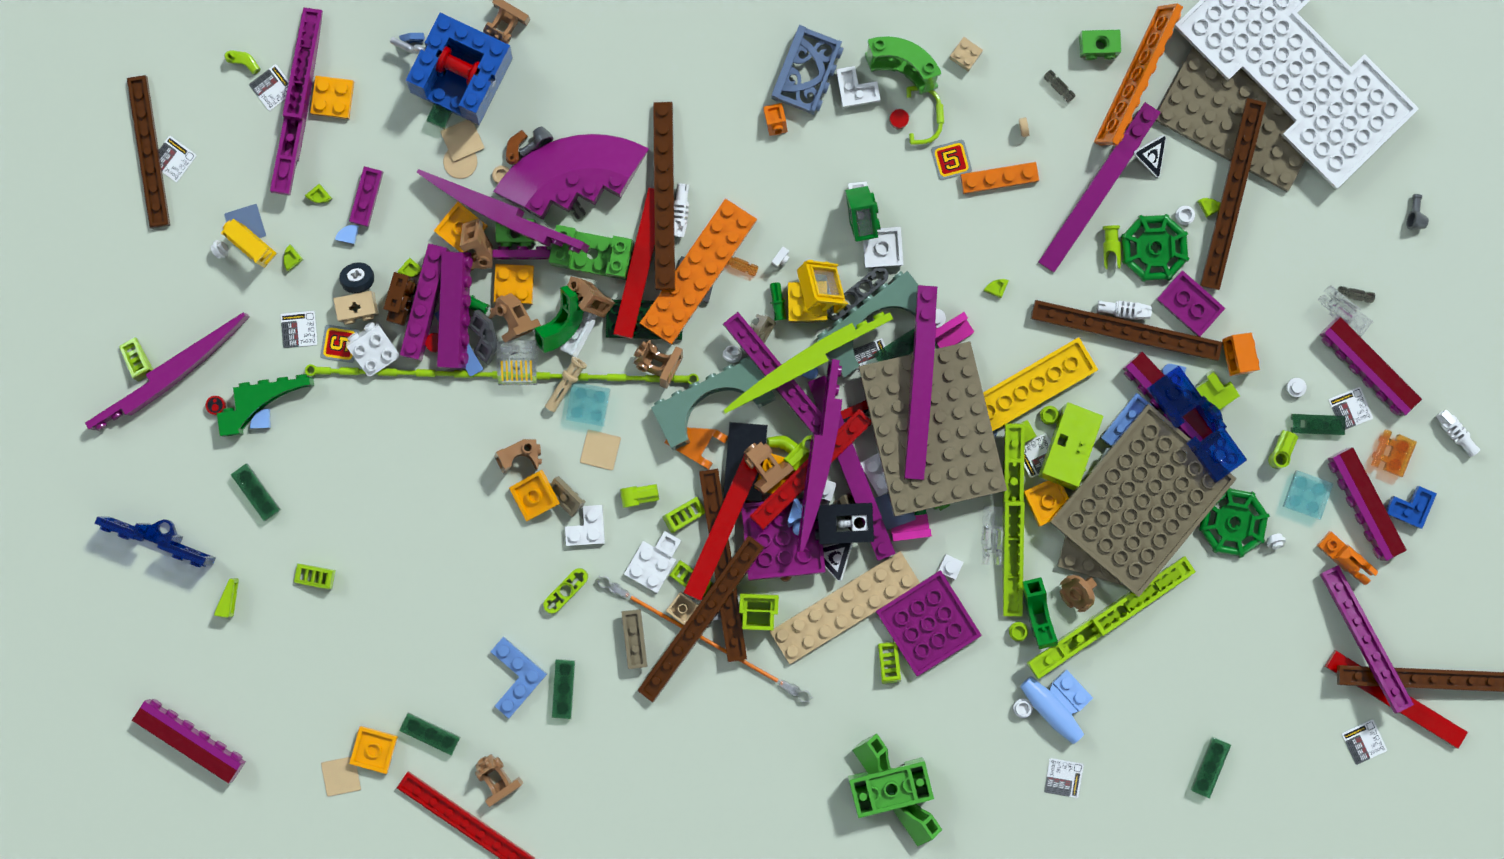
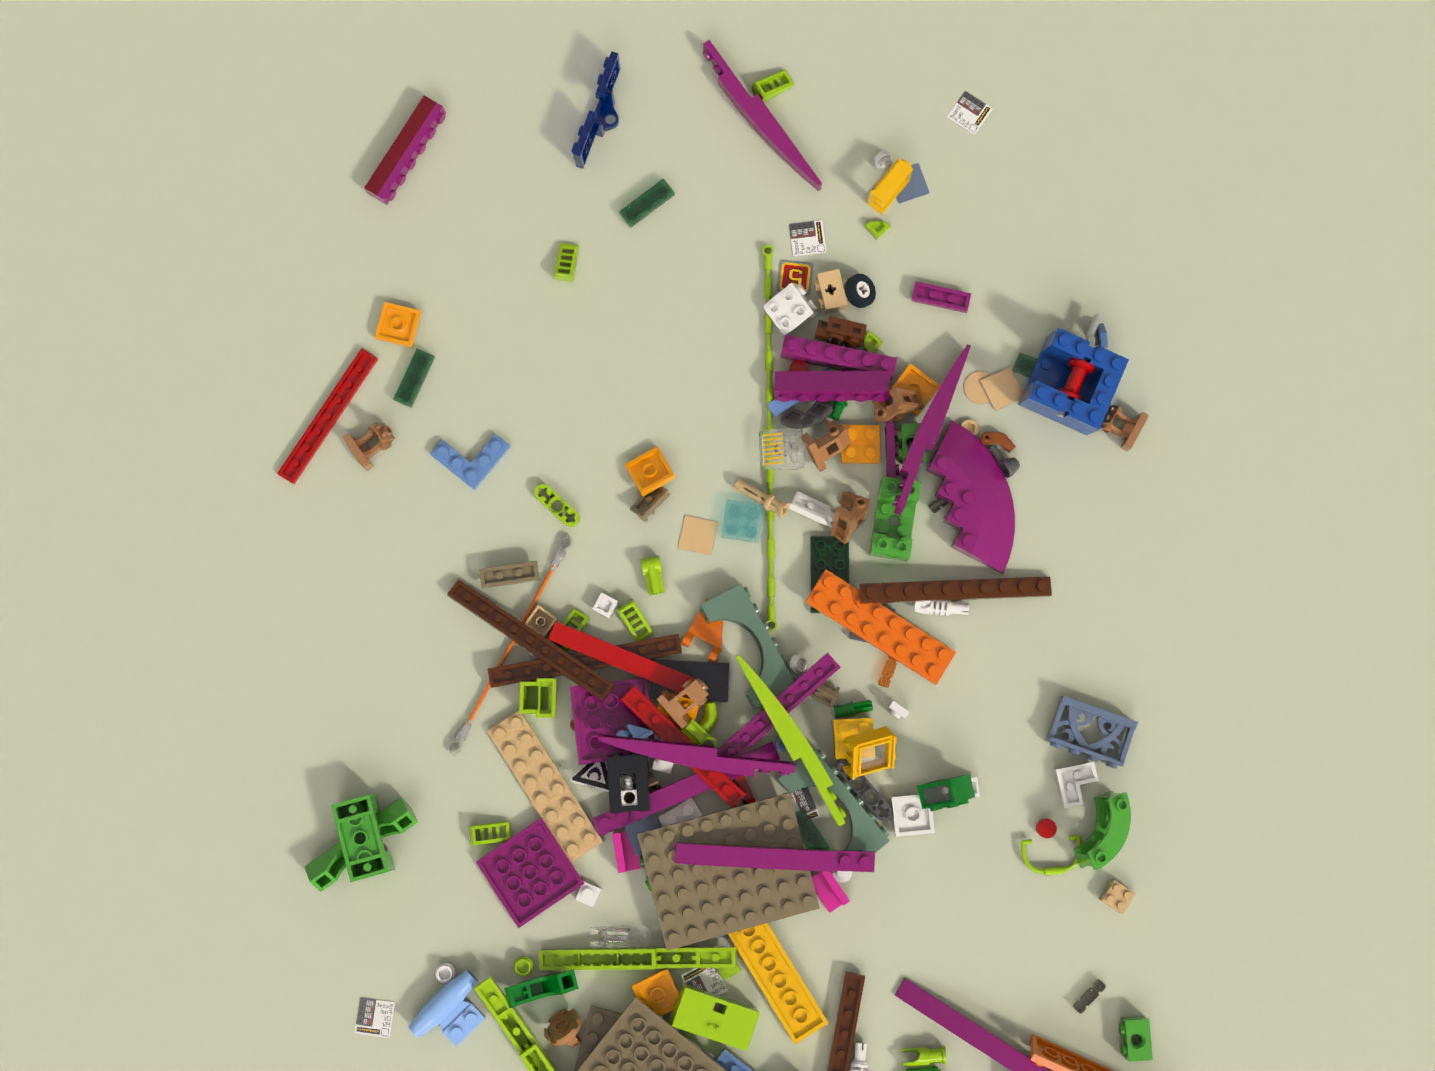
camera: 90 degrees right, 5 degrees down
(148, 151) = (975, 89): reddish brown tile -> none
(215, 404) = (730, 162): tile -> none
(228, 599) = (541, 181): lime slope -> none
(244, 58) = (1072, 174): lime arm -> none
(253, 398) = (737, 196): green arch -> none
(261, 419) = (717, 206): light blue tile -> none
(271, 87) = (1045, 203): sticker -> none
(297, 101) = (1032, 227): magenta slope -> none
(318, 195) = (940, 251): lime tile -> none
(332, 97) = (1038, 261): light orange plate -> none
(340, 776) = (372, 294): tan sticker -> none
(348, 234) = (903, 281): light blue tile -> none
(505, 456) = (689, 443): medium nougat tile -> none
(563, 325) = (820, 493): green arch -> none
(563, 689) = (459, 506): clear green plate -> none
(591, 532) = (616, 529): white plate -> none
(637, 271) = (877, 566): red tile -> none
(650, 566) = (582, 588): white plate -> none
(670, 363) = (786, 602): medium nougat tile -> none
(775, 119) = (1039, 700): orange bracket -> none
(951, 159) = (1006, 884): sticker -> none
(997, 287) = (876, 935): lime tile -> none
(999, 177) = (990, 935): orange plate -> none
(1024, 127) = (1044, 959): tan tile -> none
(1049, 415) = (746, 993): lime plate -> none

